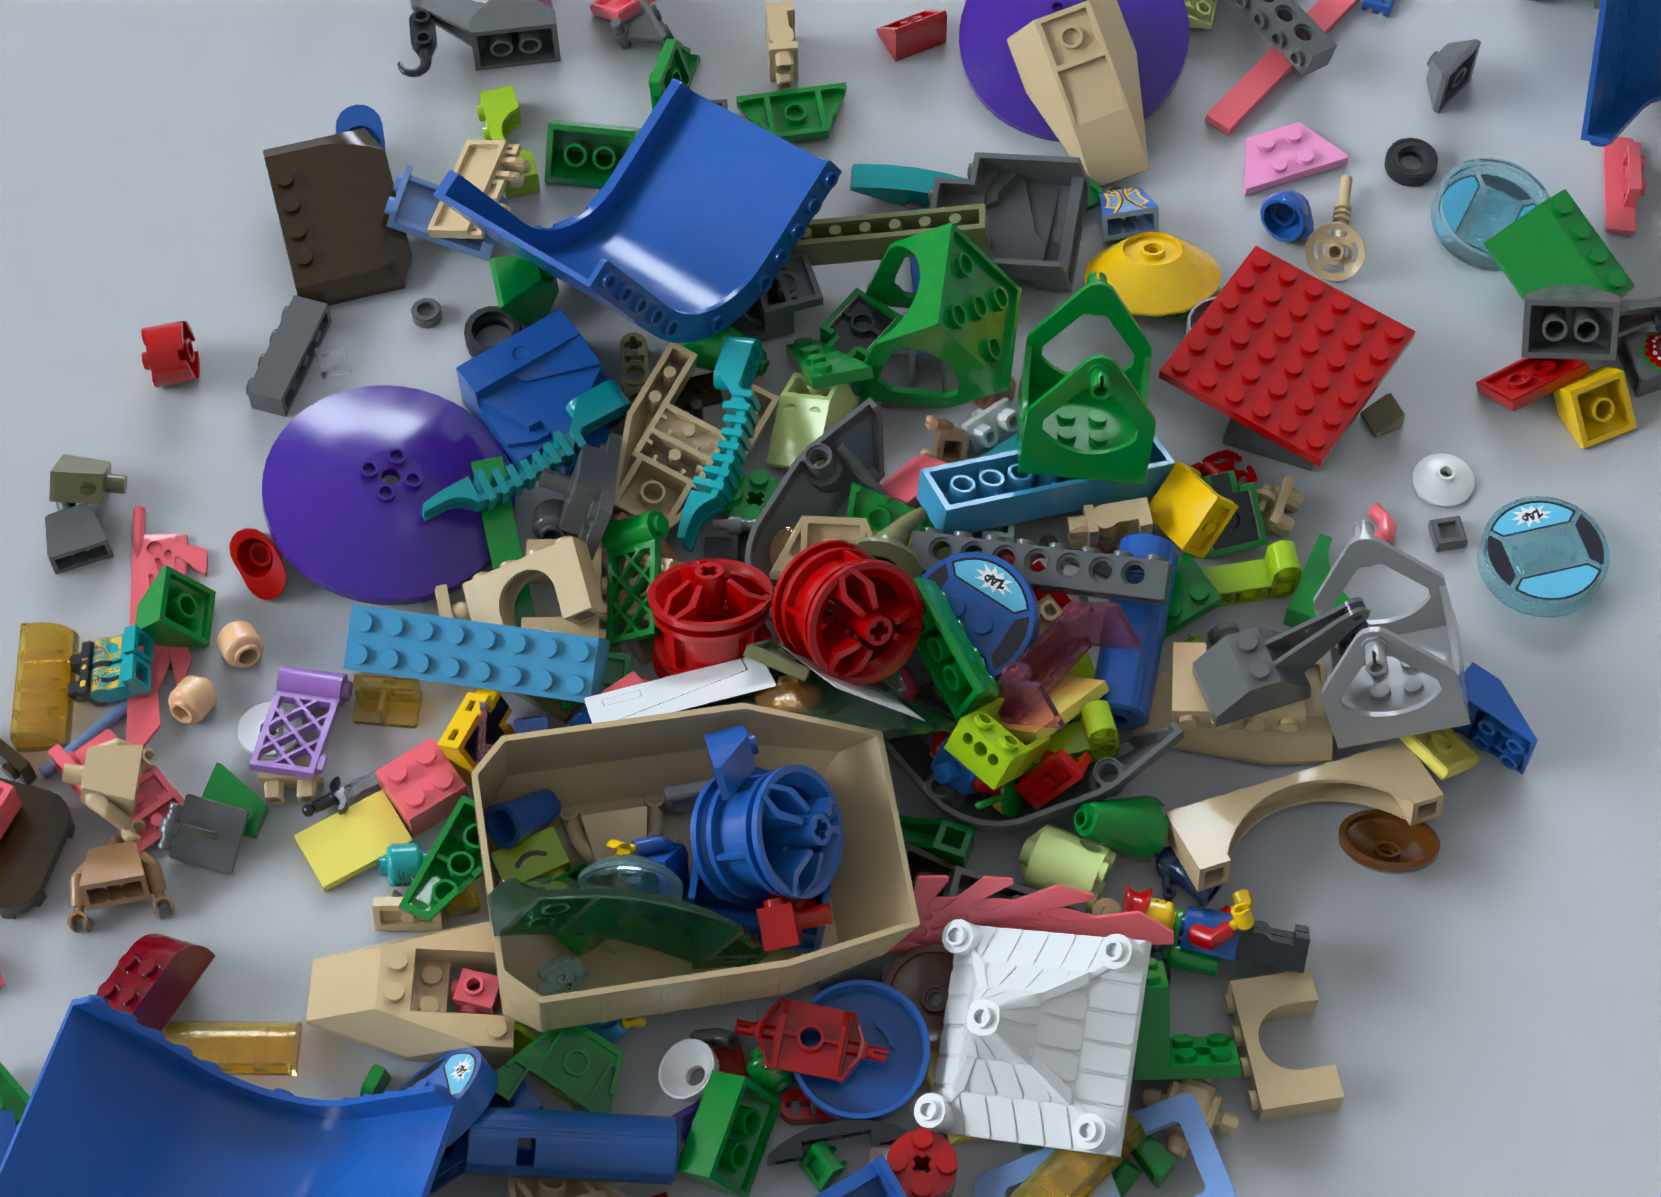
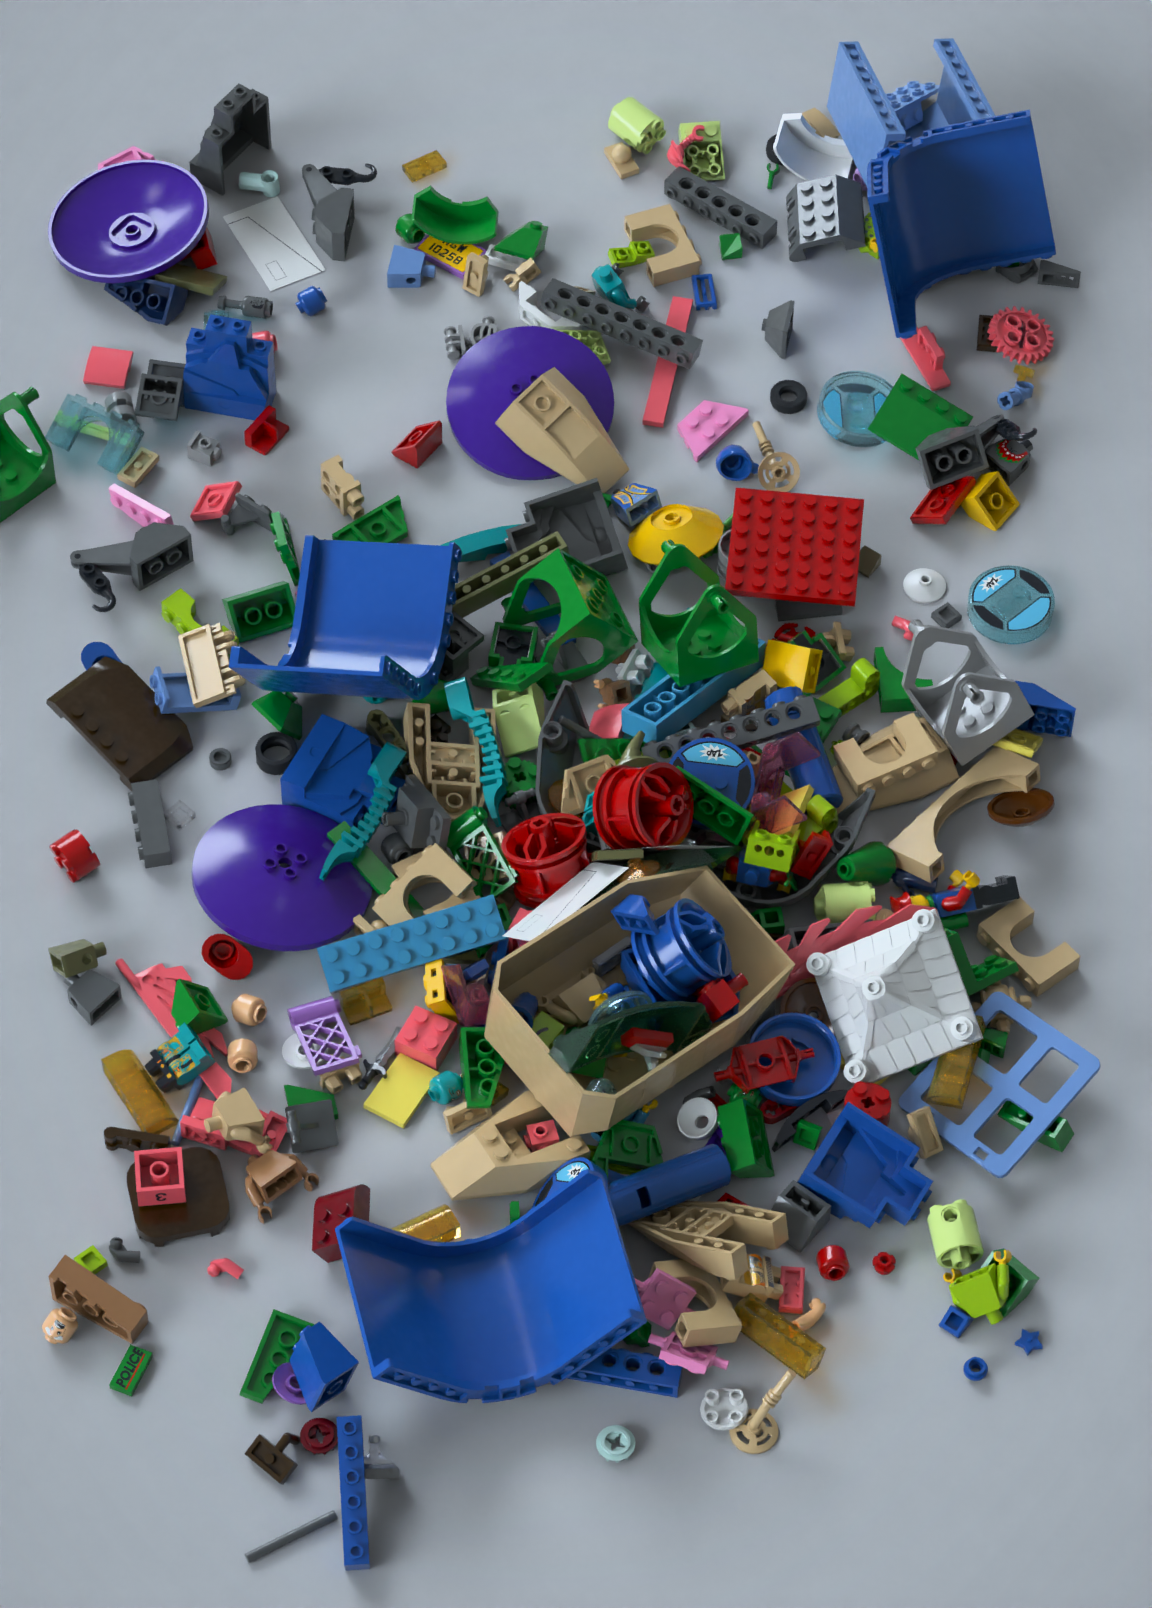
camera: 30 degrees left, 5 degrees down
(646, 945) = (648, 1043): none -> red piece
(1267, 668) = (901, 734): dark grey slope -> none

